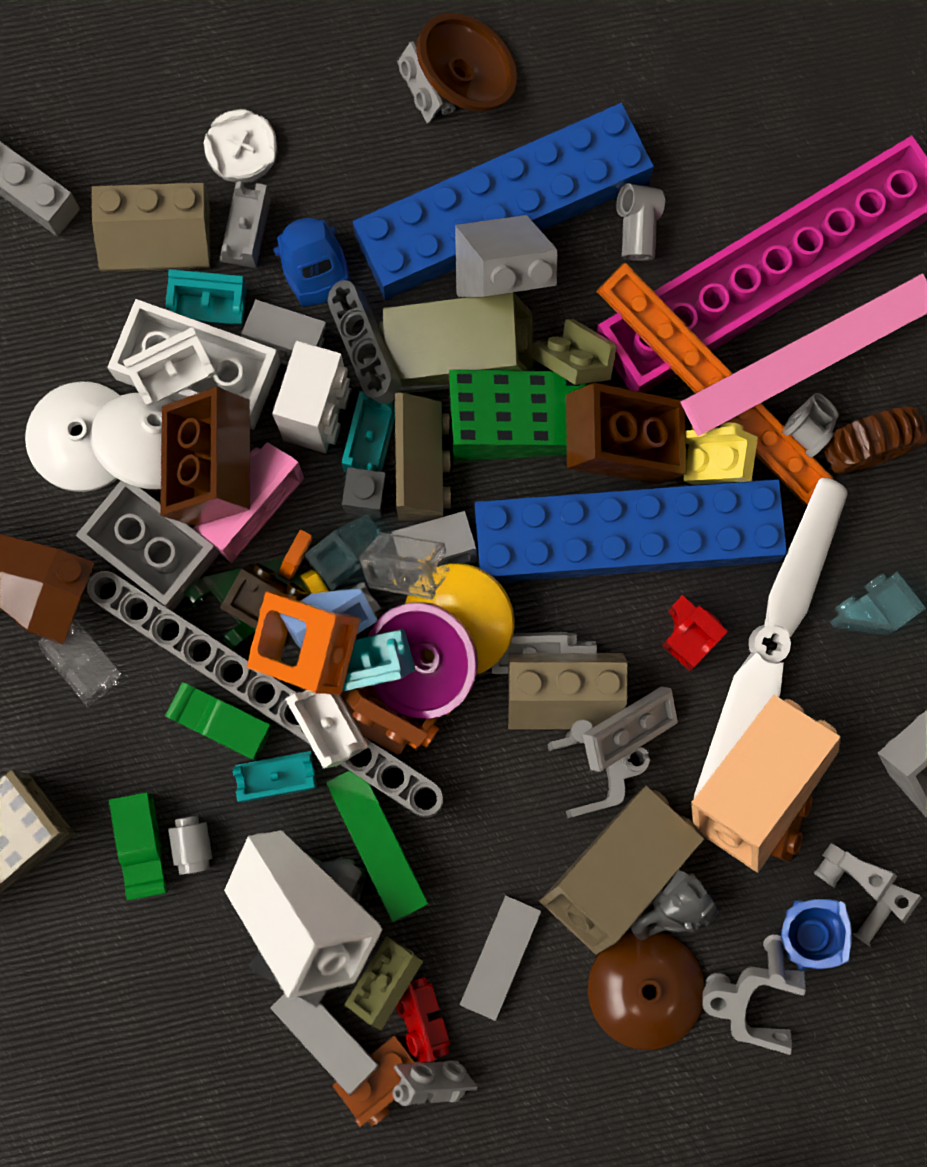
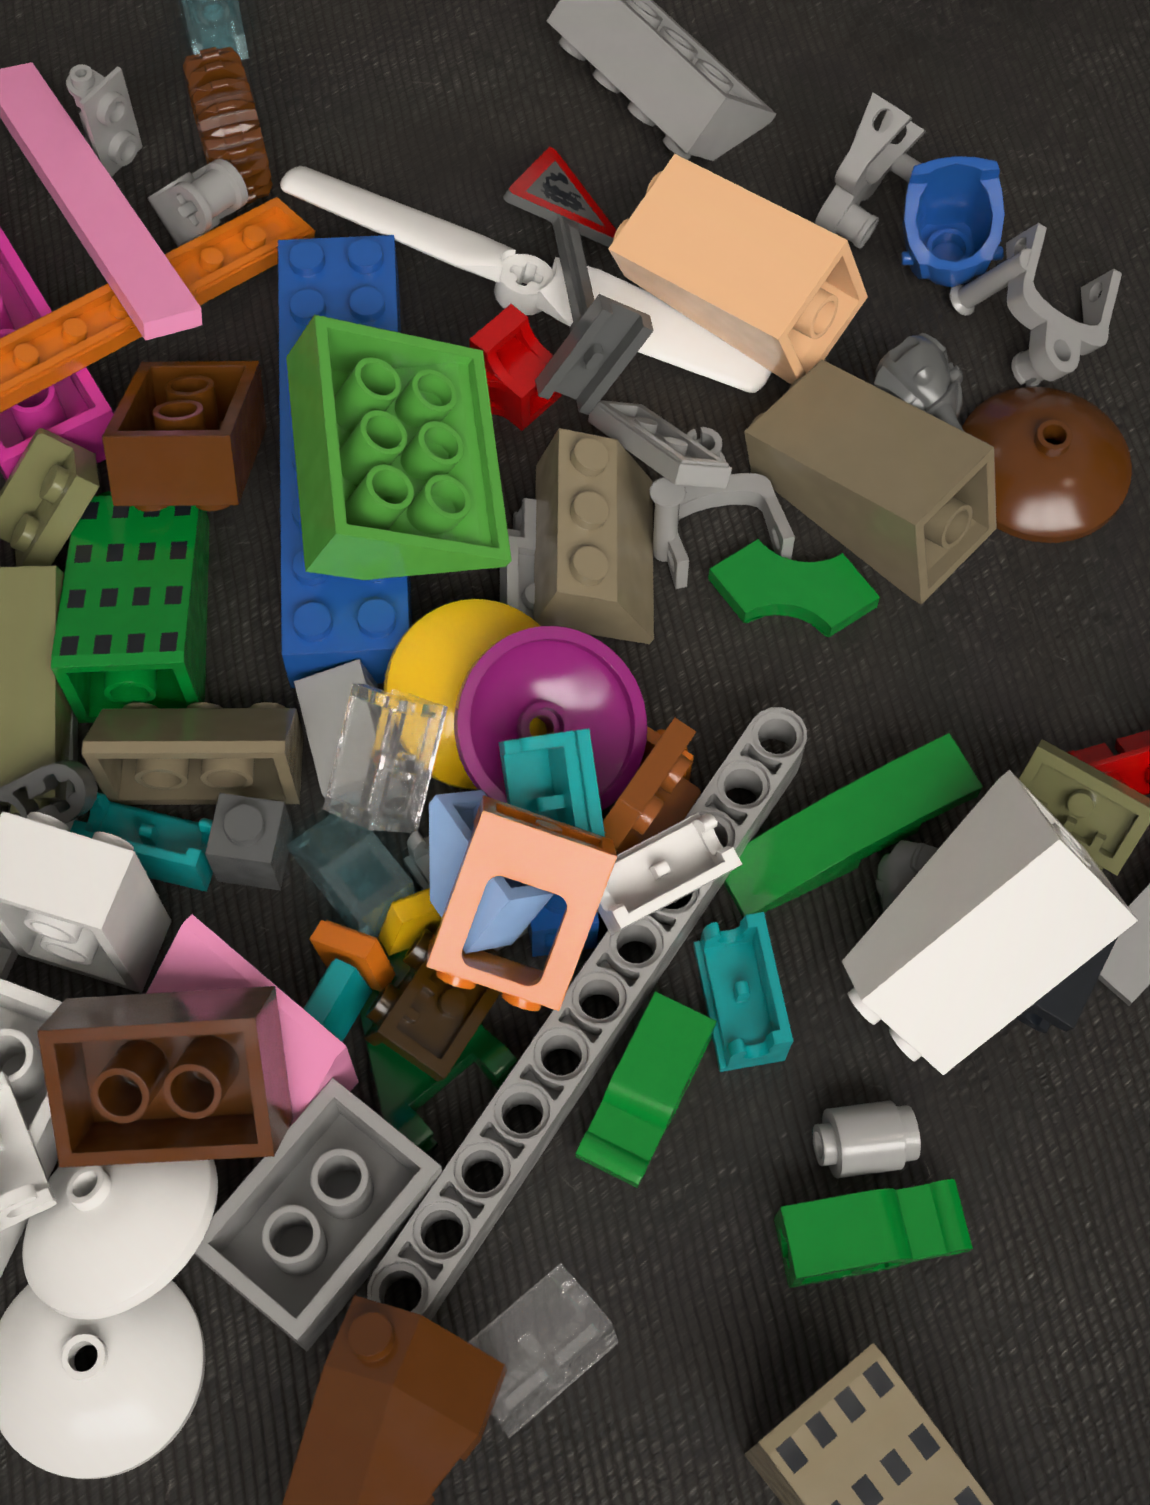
camera: 90 degrees left, 15 degrees down
(266, 546) = (338, 998): none -> teal tile
(500, 958) = (1015, 656): light grey tile -> none
(548, 799) = (765, 584): none -> green tile
(603, 561) = (393, 454): none -> bright green slope
(720, 455) = (236, 311): light yellow bracket -> none
(833, 670) = (603, 331): none -> dark grey piece
(876, 361) = (105, 115): none -> light grey hinge
(881, 610) = (474, 144): clear light blue slope -> none

